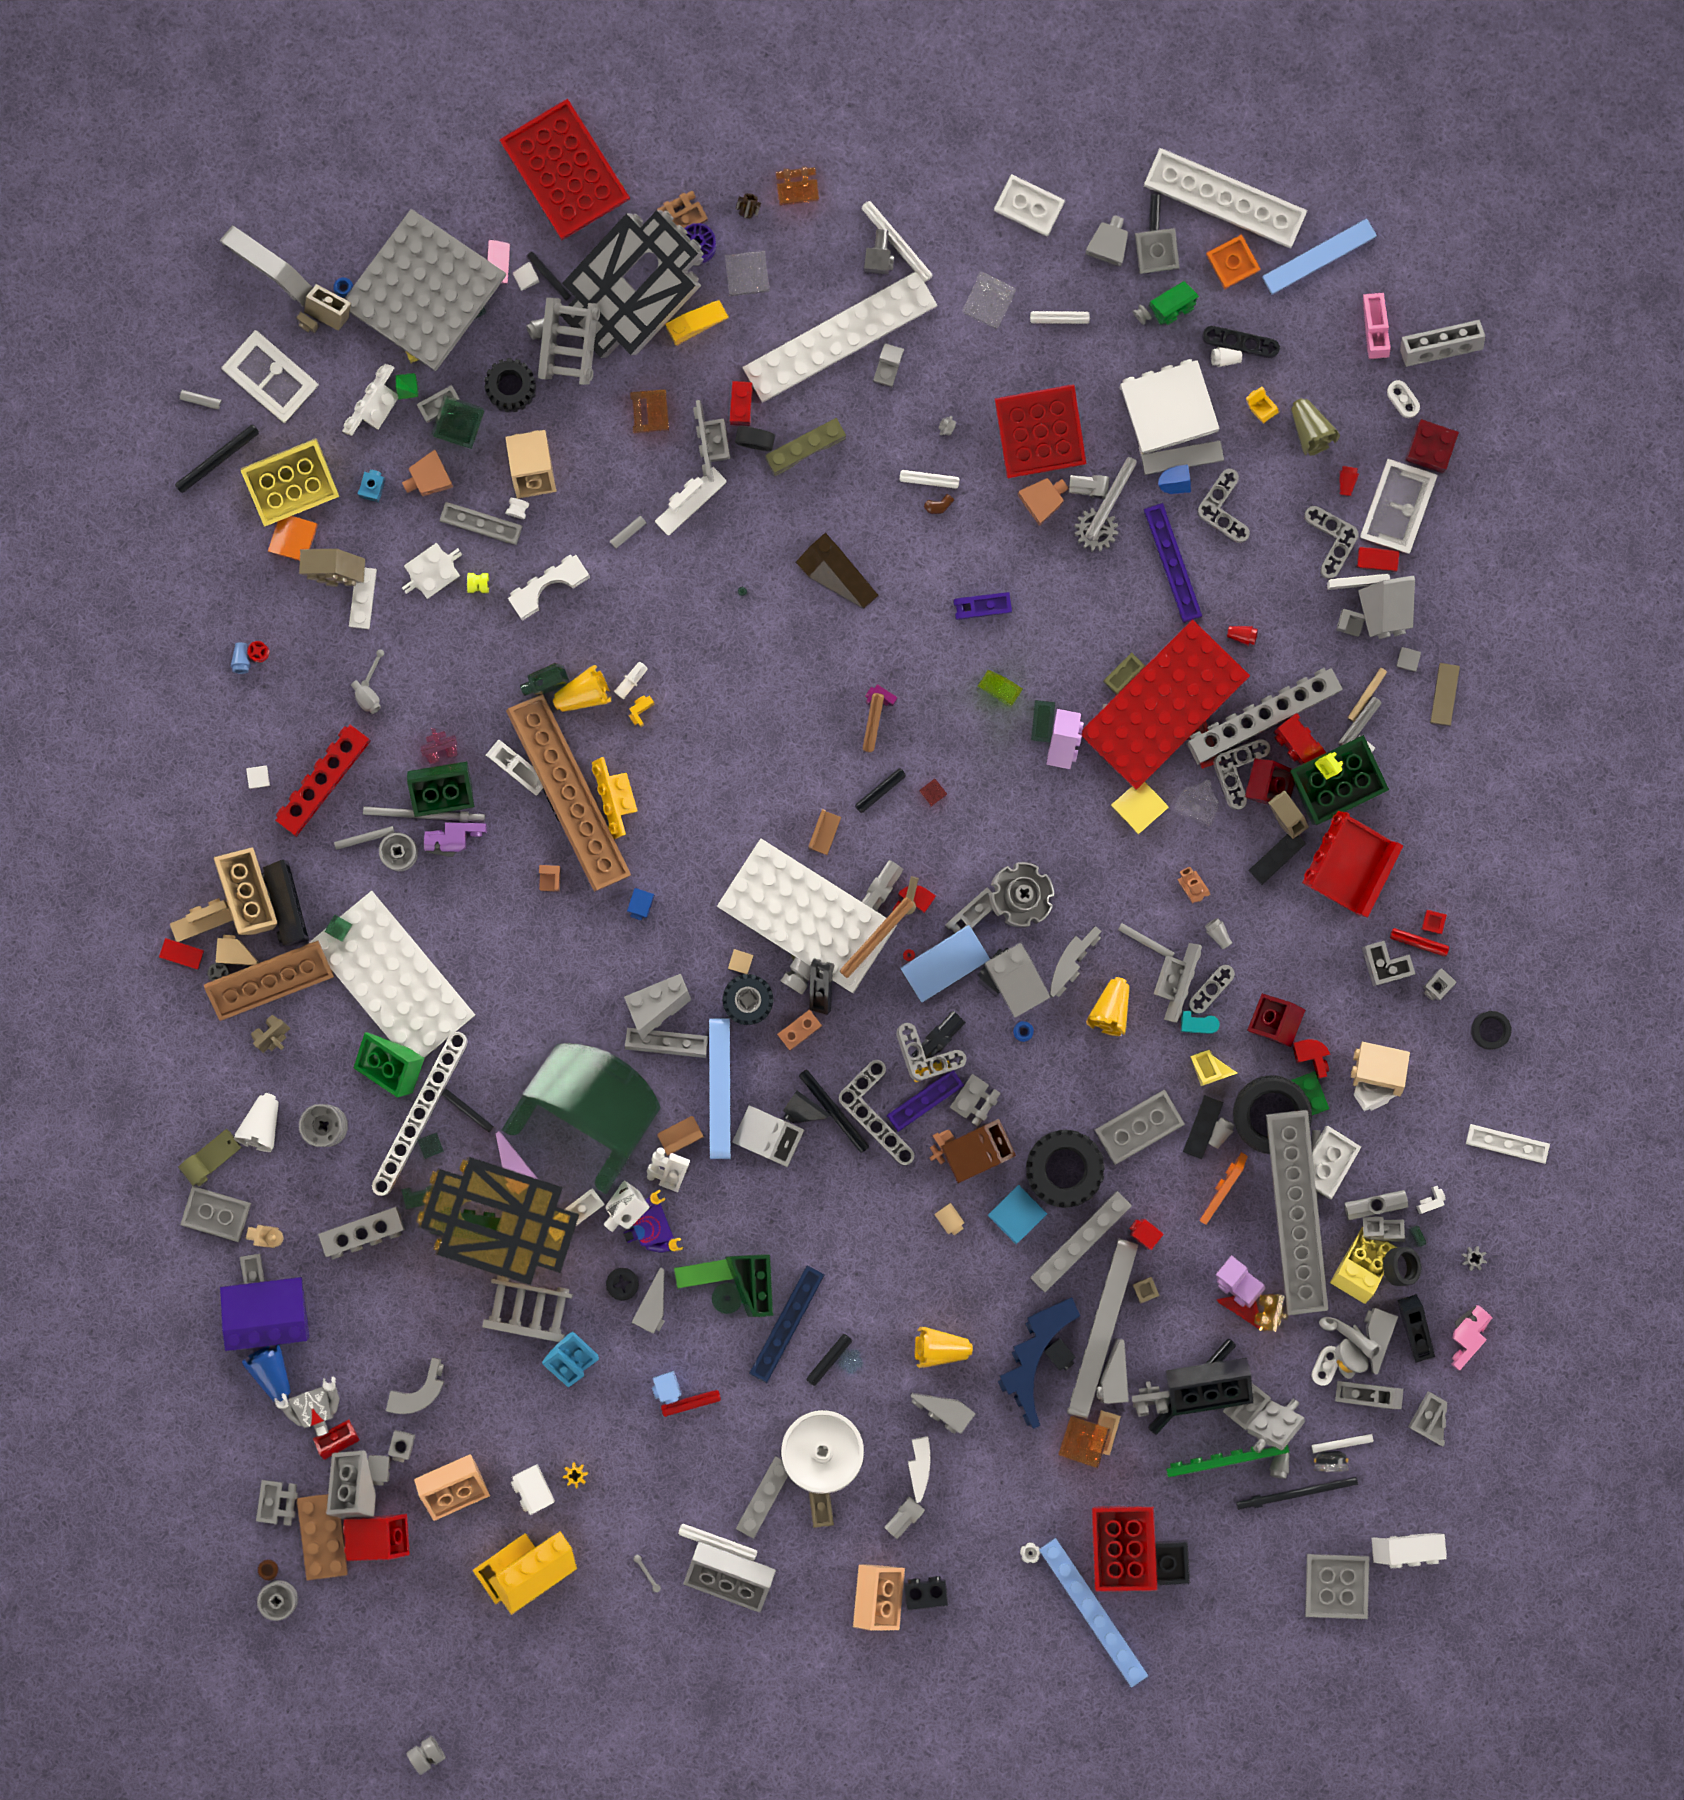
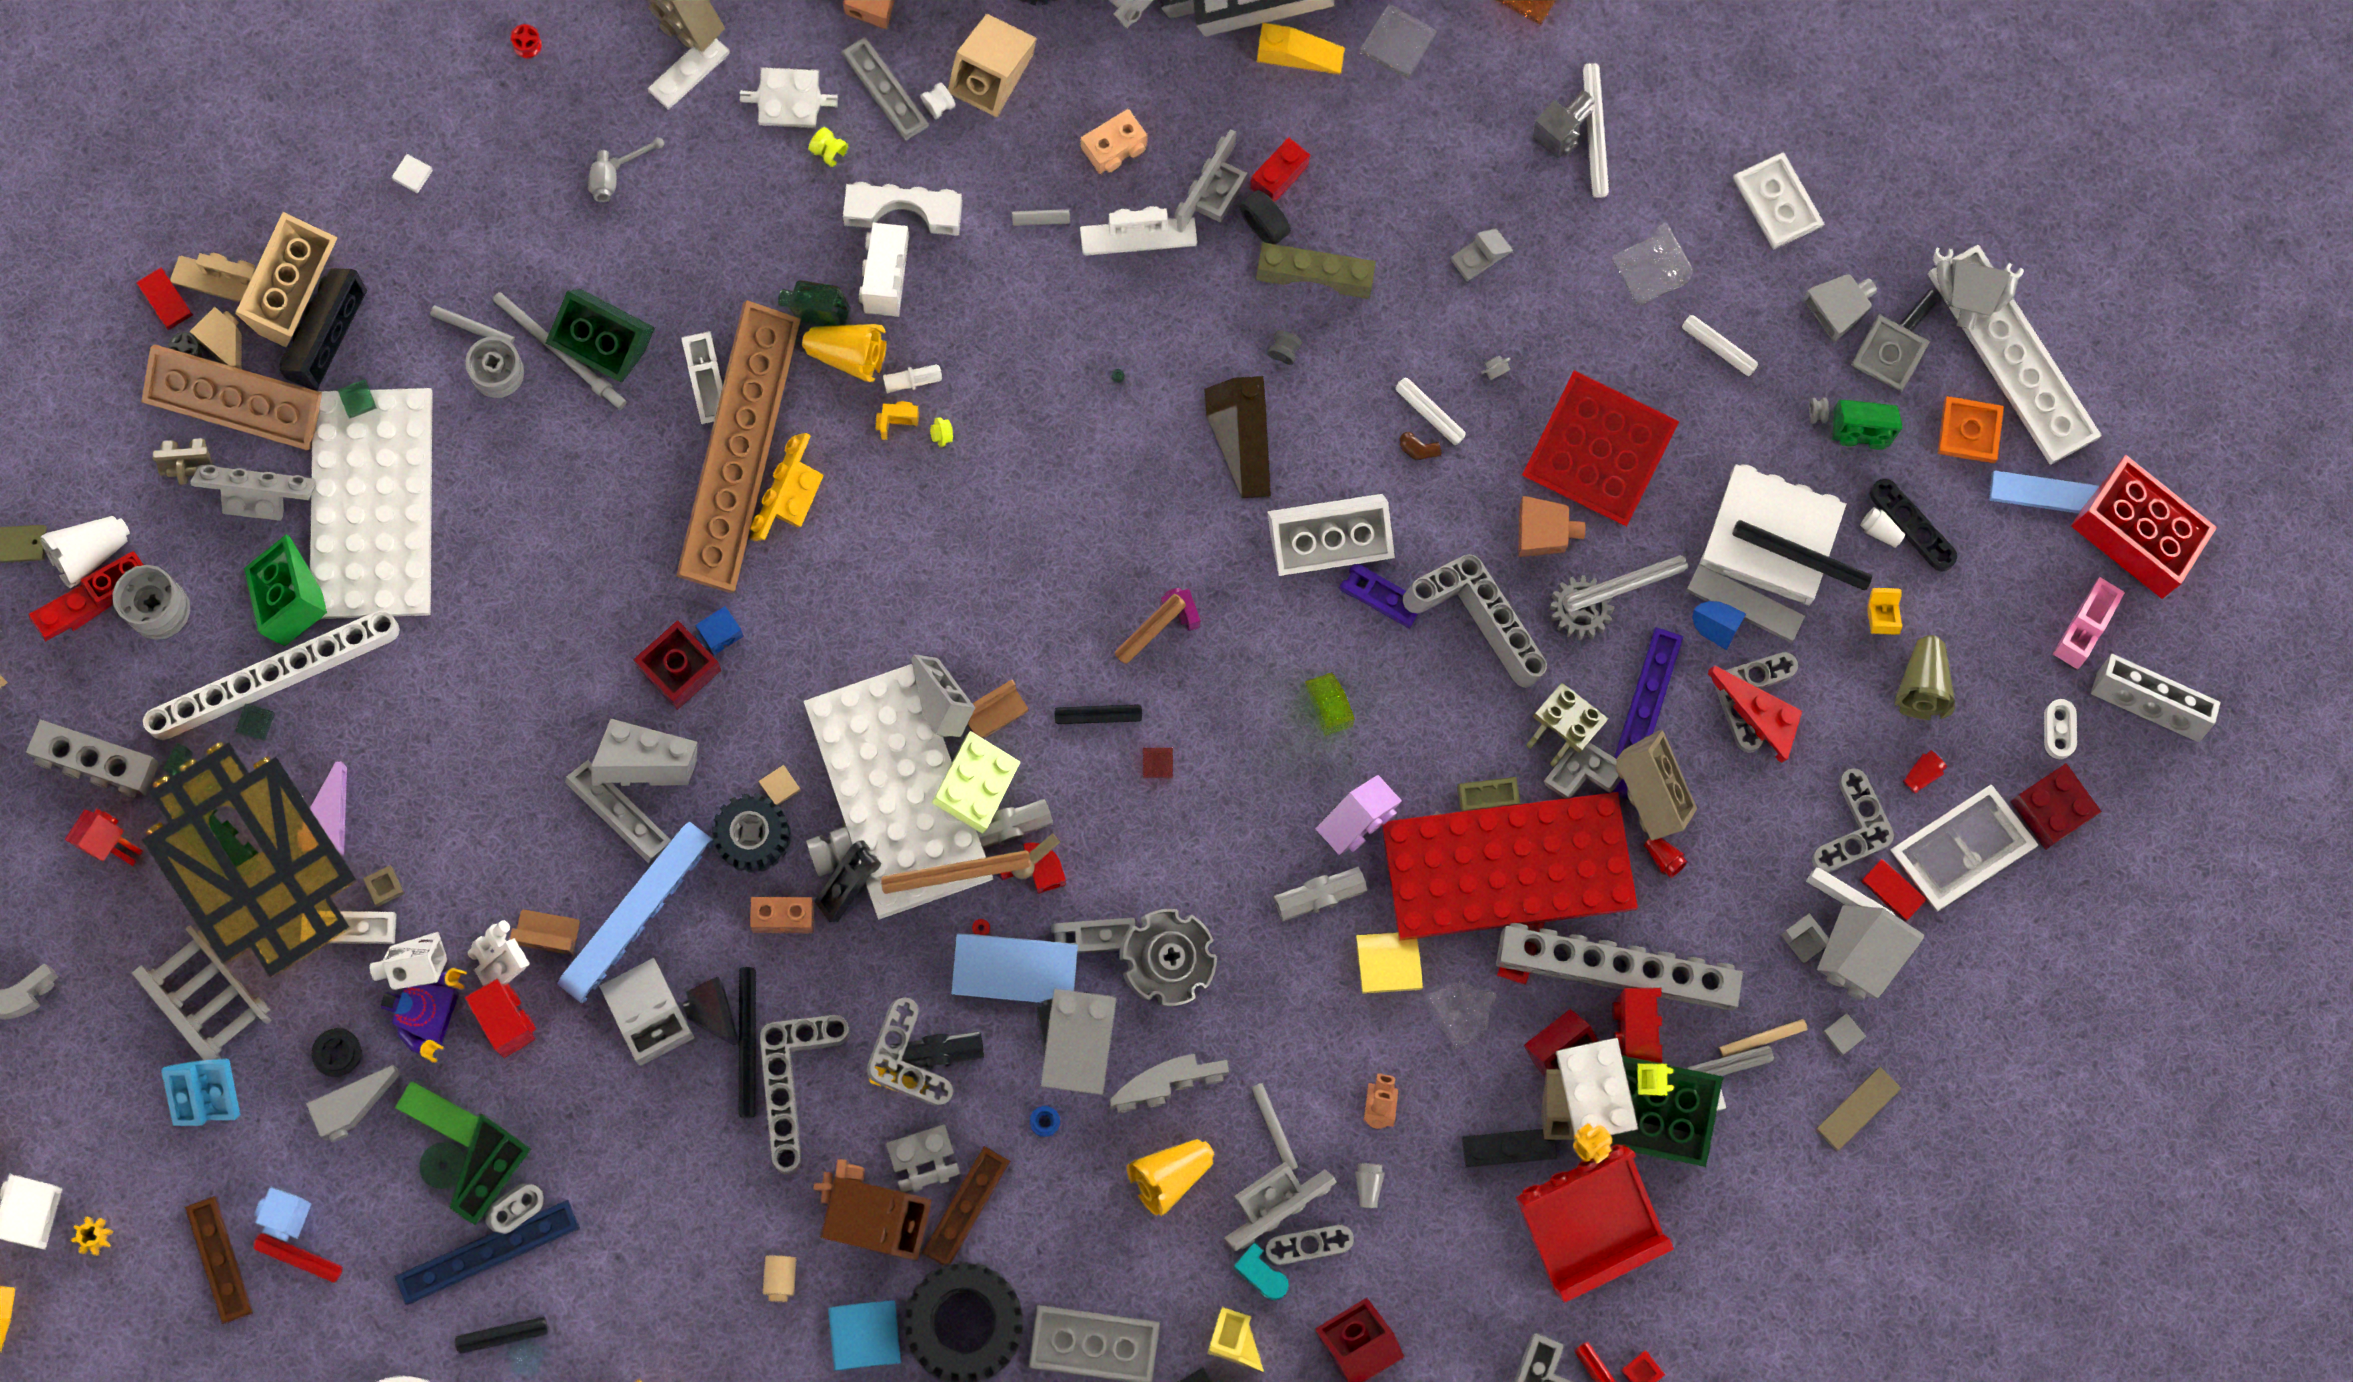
camera: 35 degrees right, 10 degrees down
(240, 661) = (498, 36): medium blue cone -> none
(284, 1150) = (84, 601): none -> red slope
(325, 1022) = (253, 492): none -> light grey bracket
(334, 776) = (493, 234): red brick -> none
(402, 1270) = (98, 834): none -> red brick
(448, 743) = (624, 286): clear pink hips -> none
(453, 838) = (568, 398): medium lavender plate -> none
(467, 1110) = (330, 715): black bar -> none
(549, 878) = (641, 525): nougat panel -> none
(566, 630) = (884, 269): none -> white wedge
(574, 1178) = (384, 886): none -> dark tan plate
(595, 1096) = (485, 812): clear green windscreen -> none
(634, 457) = (1114, 142): none -> light nougat brick
(634, 939) = (677, 665): none -> dark red brick
(650, 1436) = (219, 1260): none -> reddish brown tile
(656, 411) = (1179, 110): clear orange plate -> none
(671, 698) = (941, 432): none -> neon yellow plate
(697, 1199) = (500, 1018): none -> red brick
(784, 1292) = (512, 1209): none -> light grey plate
(792, 848) = (941, 698): none -> light grey slope
(822, 504) = (1284, 347): none -> dark grey wheel
(839, 336) = (1450, 184): white plate -> none
(846, 879) = (976, 782): none -> yellowish green plate
(925, 1100) = (864, 1113): dark purple tile -> none
(929, 593) = (1331, 534): none -> white slope
(1017, 1108) = (966, 1207): none -> reddish brown tile
(1043, 721) = (1349, 776): clear green tile -> none
(1046, 574) = (1483, 613): none -> light grey beam
(1075, 797) = (1320, 893): none -> light grey piece
(1093, 486) = (1615, 557): light grey piece -> none
(1137, 597) = (1570, 718): none -> plate
(1161, 616) = (1577, 767): none -> light grey plate
(1177, 178) = (1974, 287): none -> light grey torso
(1195, 409) = (1802, 555): none -> black axle
(1211, 601) = (1656, 786): none -> dark tan slope
(1231, 770) = (1530, 1003): light grey beam -> none
(1240, 513) = (1764, 712): none -> wing
(1303, 793) = (1597, 1086): none -> white plate
(1322, 824) = (1592, 1143): none -> yellow gear
(1368, 247) = (2144, 527): none -> red slope

